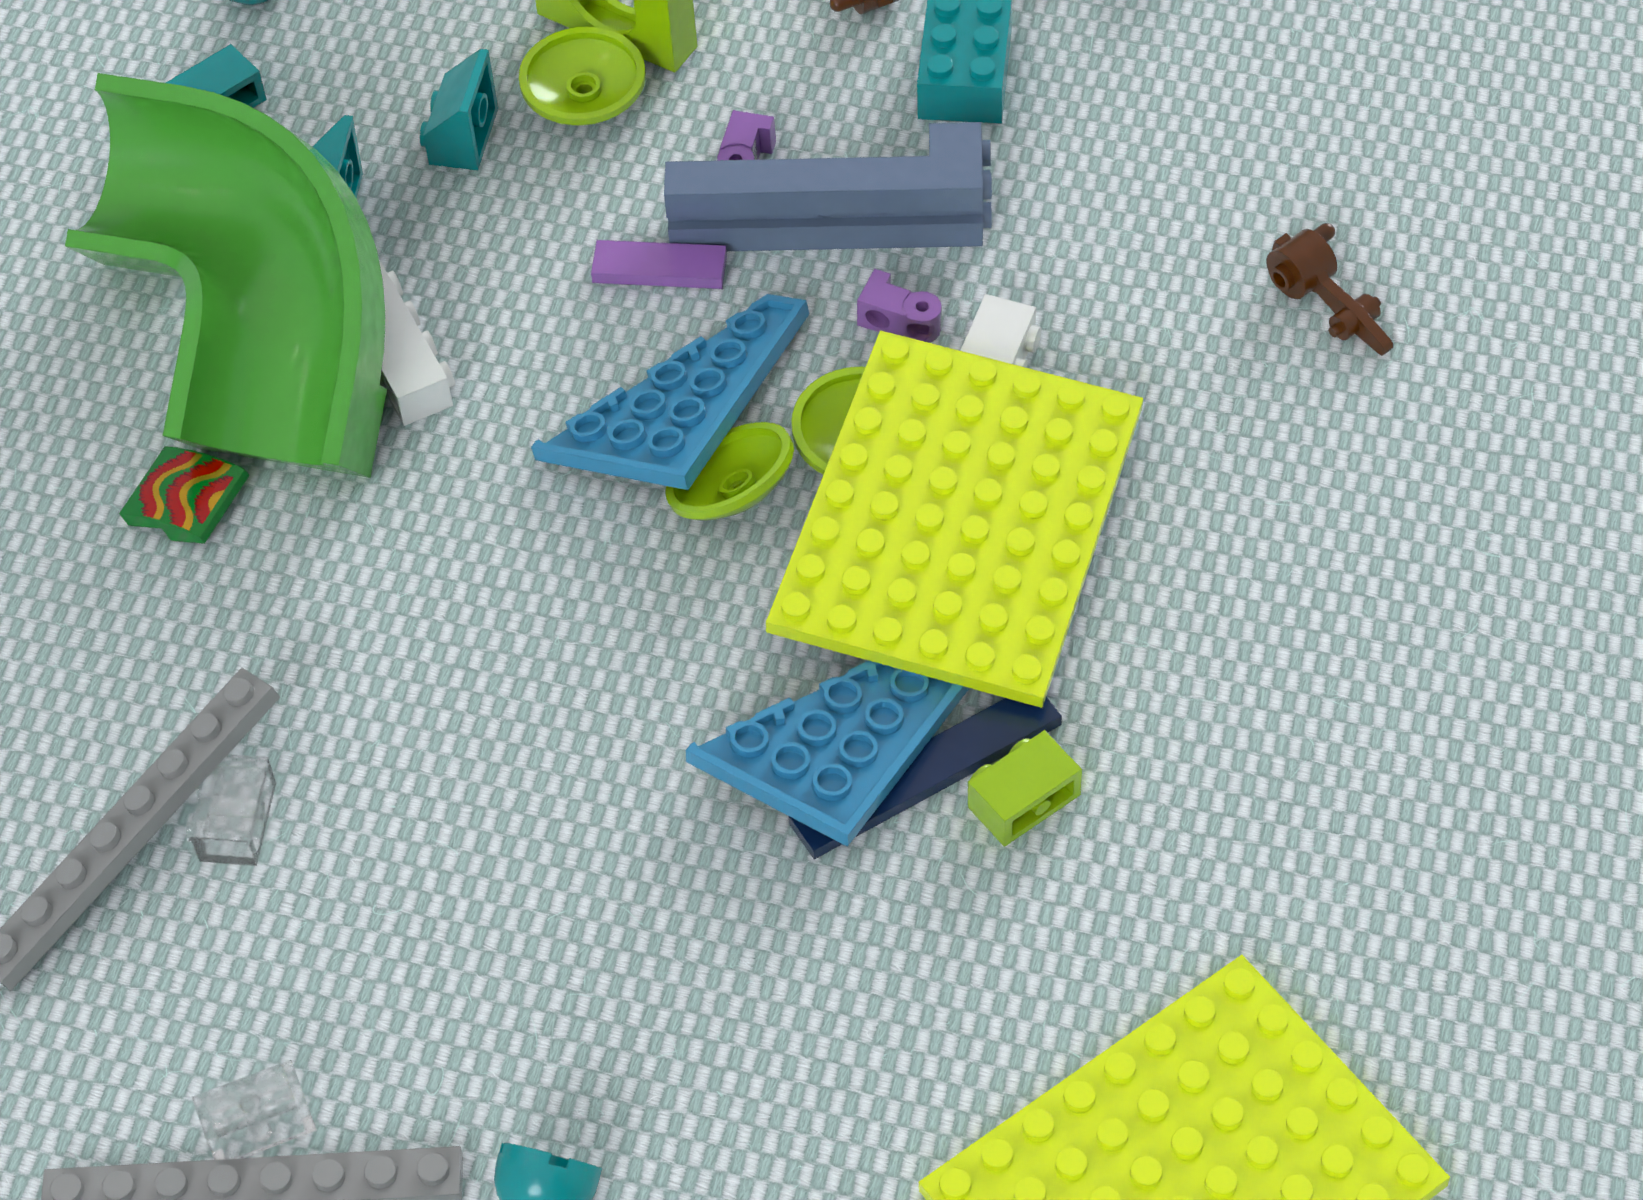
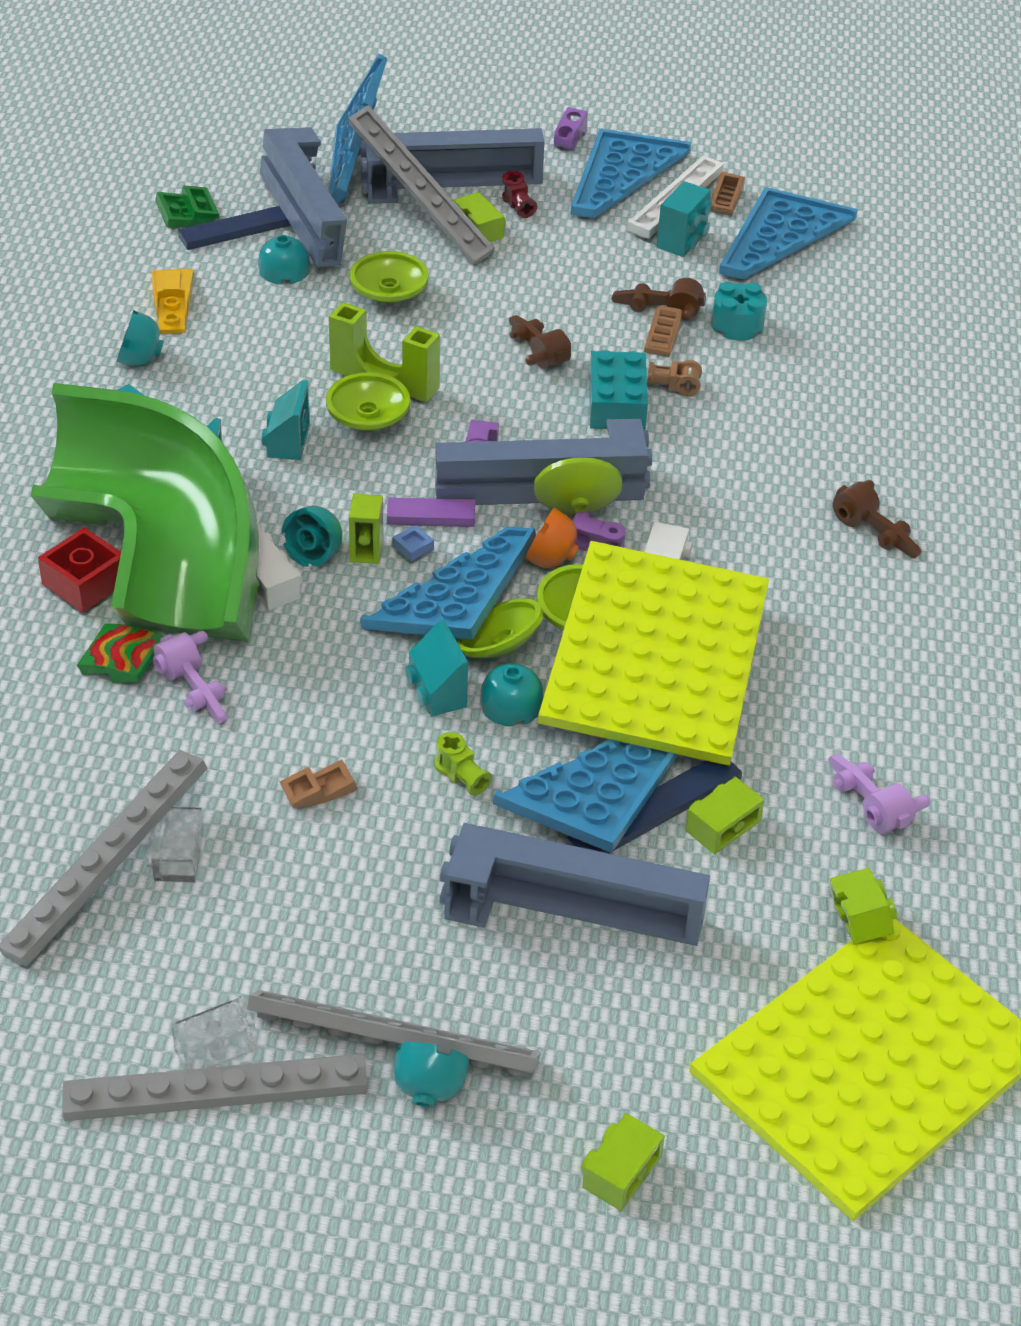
camera: 10 degrees left, 10 degrees down
(131, 358) = (80, 569): none -> red brick
(264, 510) = (180, 658): none -> lavender piece
(437, 723) = (311, 789): none -> medium nougat slope
(475, 307) = (312, 535): none -> teal cylinder
(492, 1110) = (377, 1029): none -> light grey plate
(553, 299) = (366, 528): none -> lime brick
(625, 319) = (413, 543): none -> medium blue plate
(631, 543) = (438, 671): none -> teal slope
(646, 691) = (458, 763): none -> lime connector
(737, 579) = (511, 695): none -> teal cylinder
(776, 893) = (569, 883): none -> sand blue brick
(831, 324) = (554, 541): none -> orange cylinder
(874, 235) = (578, 485): none -> lime dish
(1059, 32) = (676, 376): none -> medium nougat connector
(1201, 947) = (864, 904): none -> lime brick
(1265, 783) = (883, 808): none -> lavender piece

